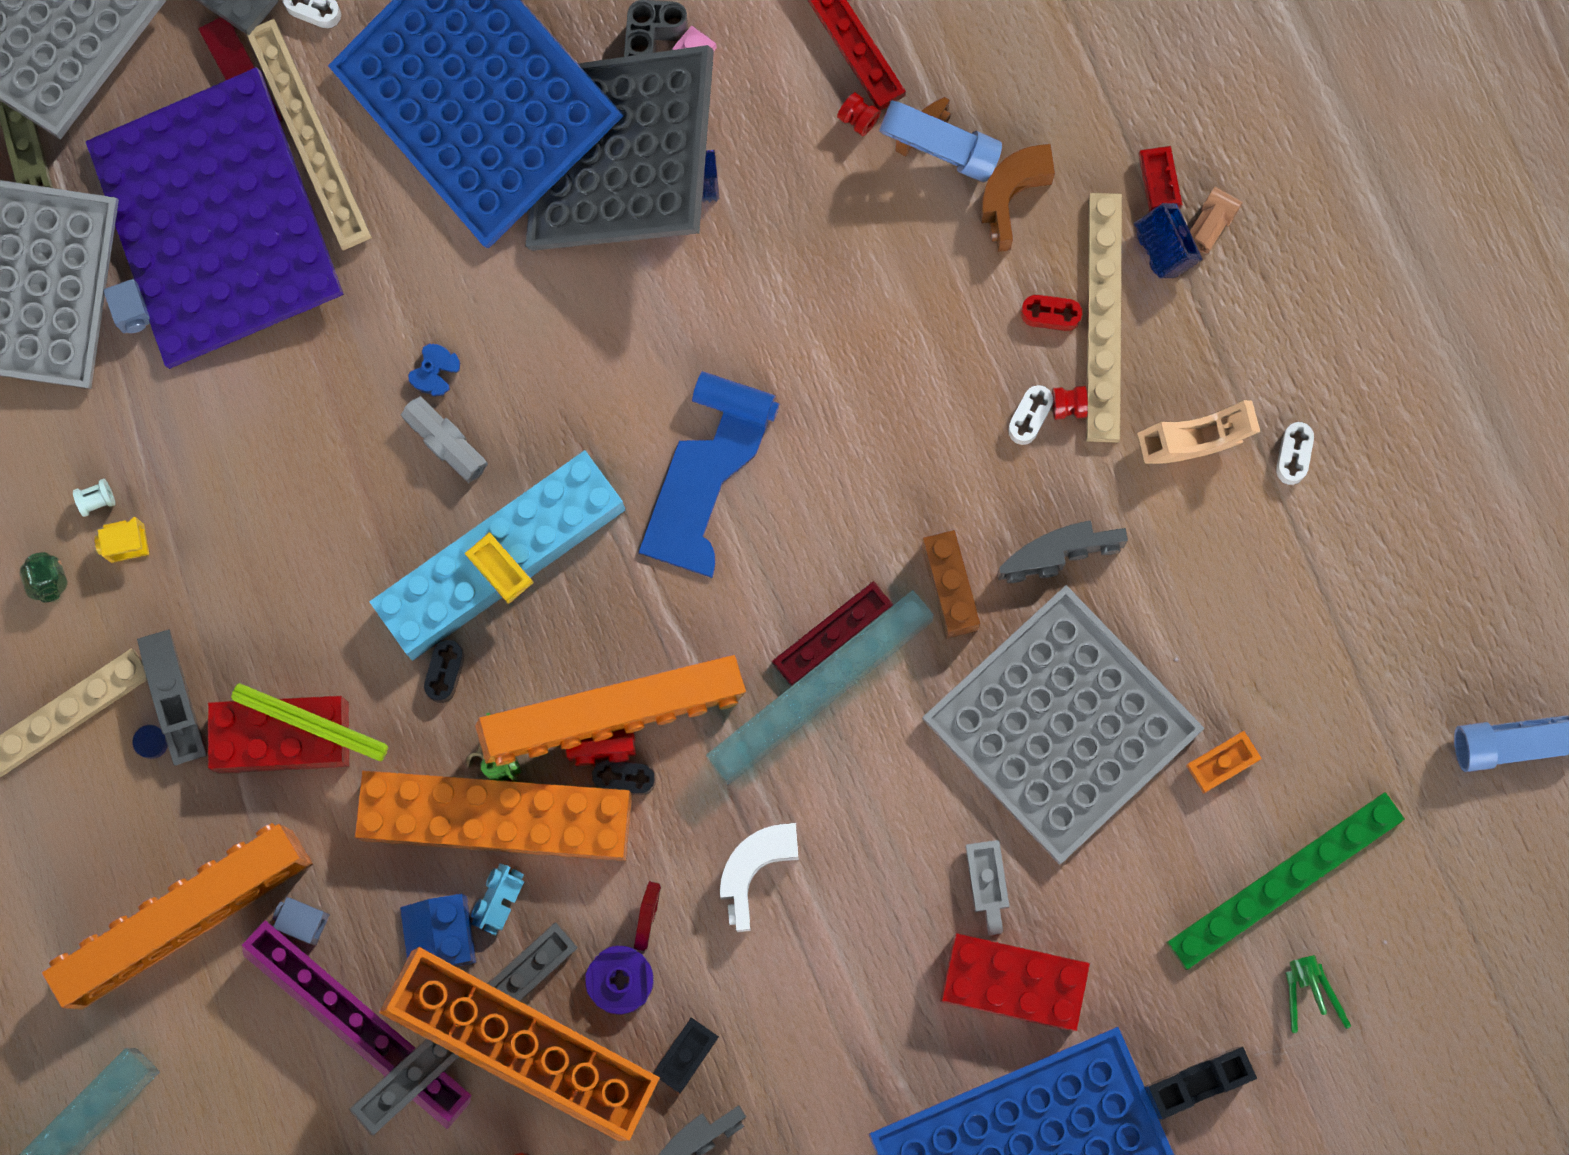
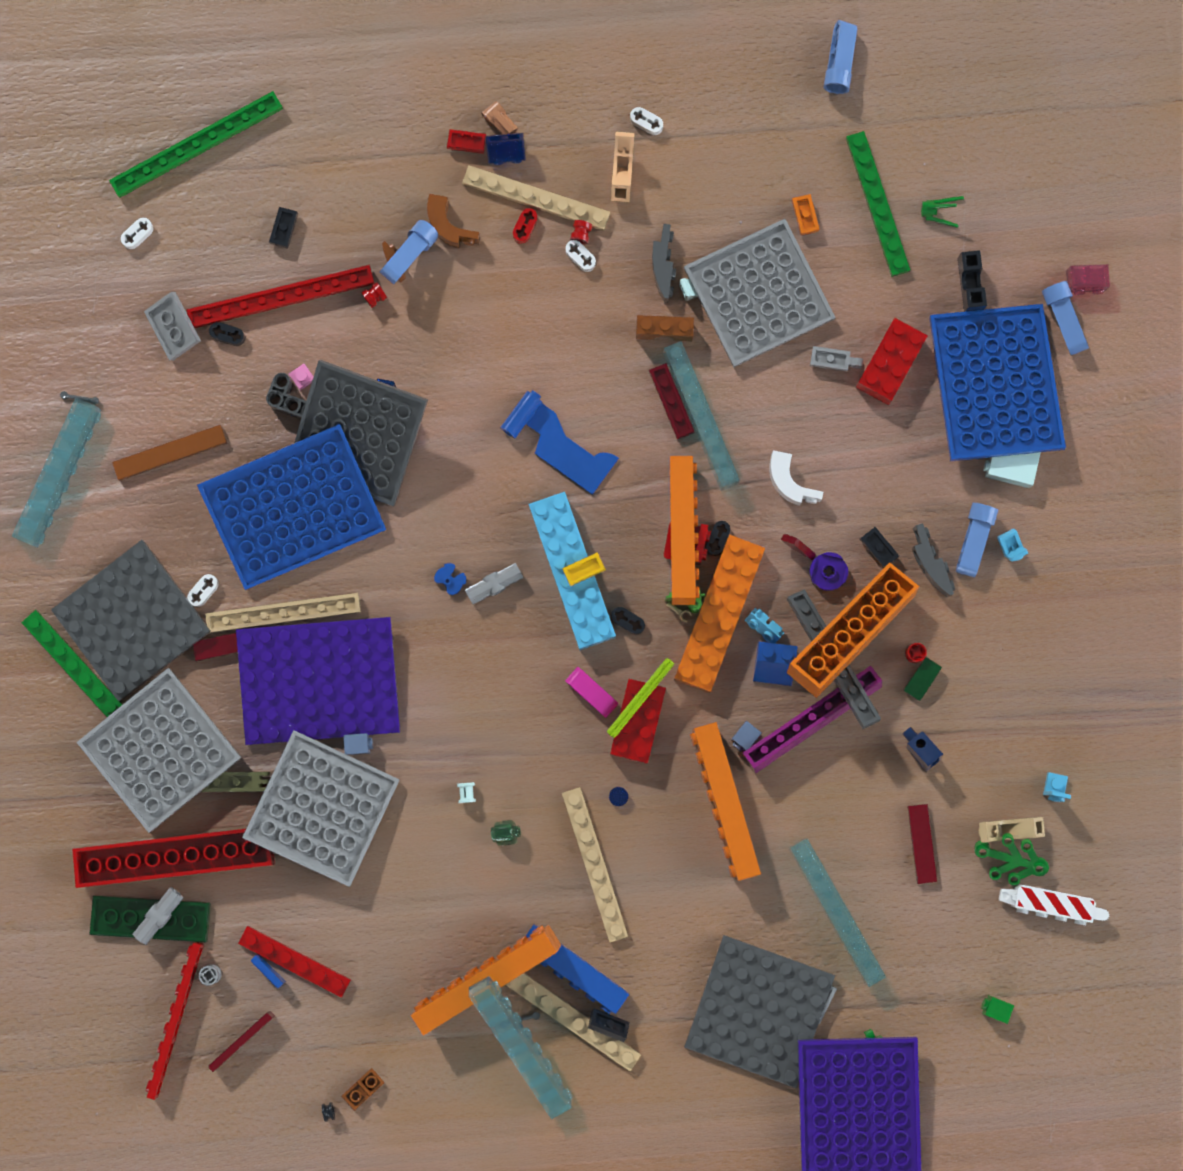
camera: 75 degrees left, 5 degrees up
(122, 540) = (497, 782): yellow window -> none
(171, 697) = (597, 776): dark grey slope -> none
(308, 646) = (591, 692): none -> dark pink beam
(1030, 603) = (687, 289): none -> light aqua slope

